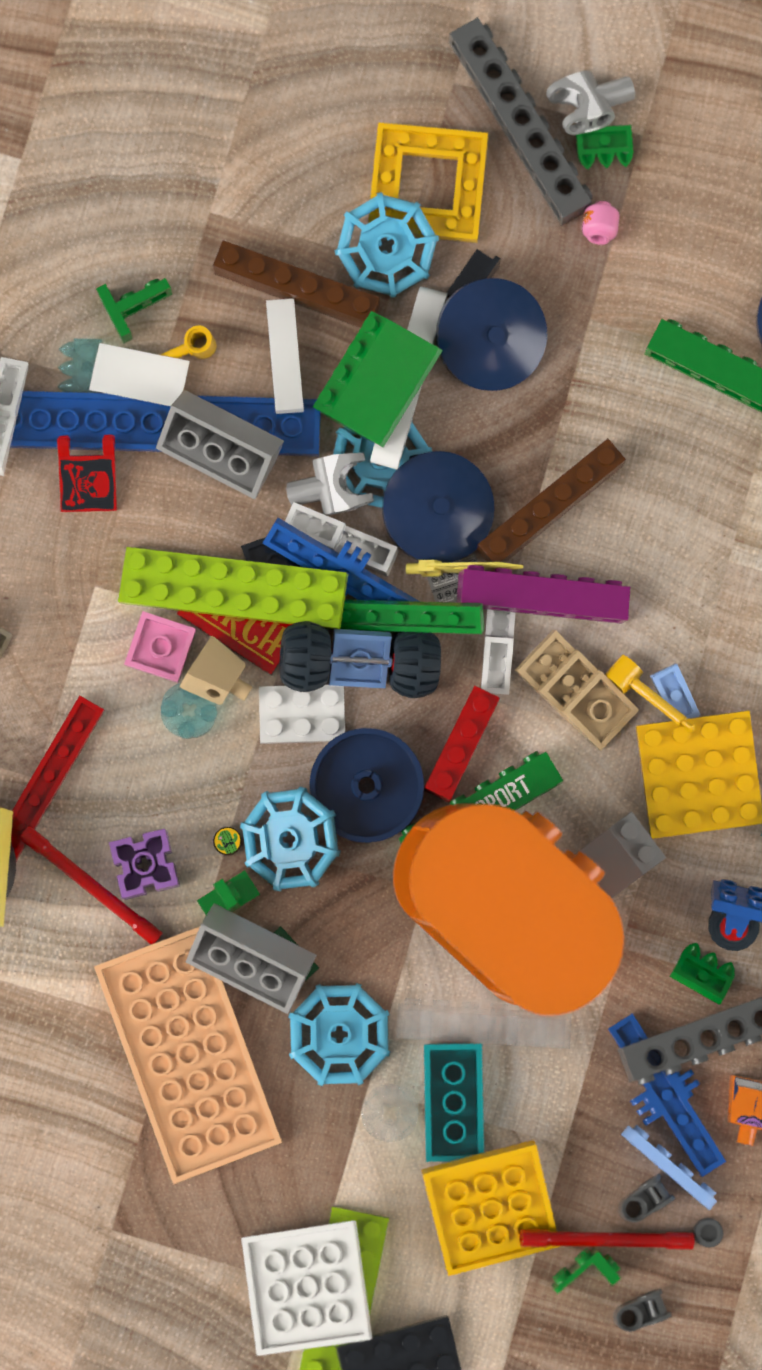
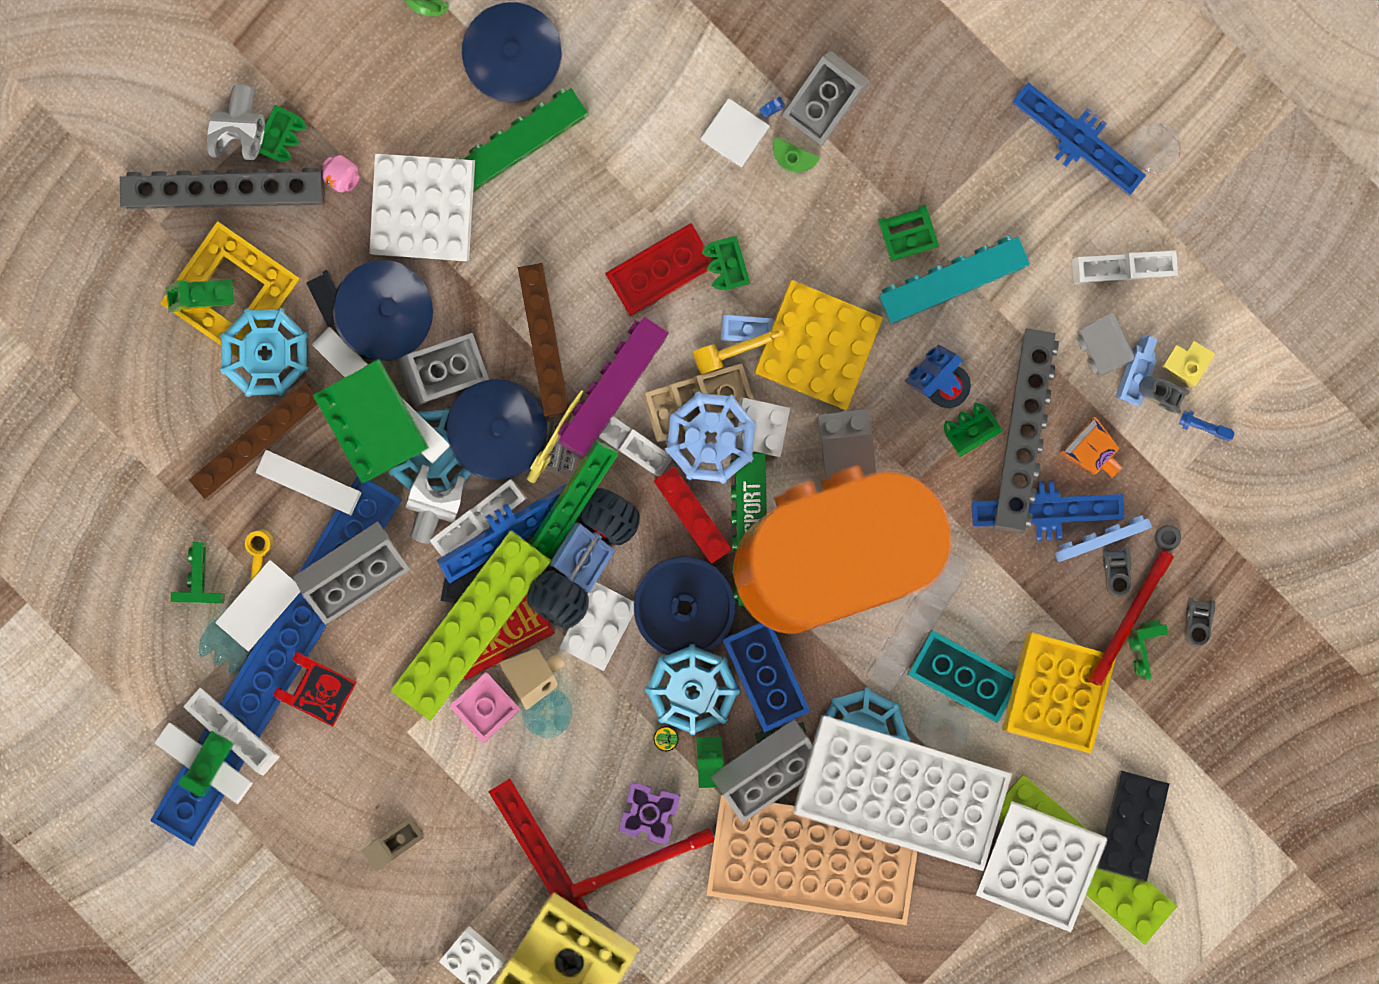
camera: 60 degrees left, 5 degrees up
(302, 1105) = (902, 793): none -> white plate
(343, 904) = (766, 676): none -> blue brick
(408, 152) = (199, 294): none -> green bracket
(467, 423) = (442, 369): none -> light grey slope
(556, 732) = (696, 436): none -> light blue plate
(586, 762) = (770, 428): none -> white plate
(613, 316) = (422, 207): none -> white plate
(685, 580) = (659, 270): none -> red tile
(729, 640) = (727, 263): none -> green plate

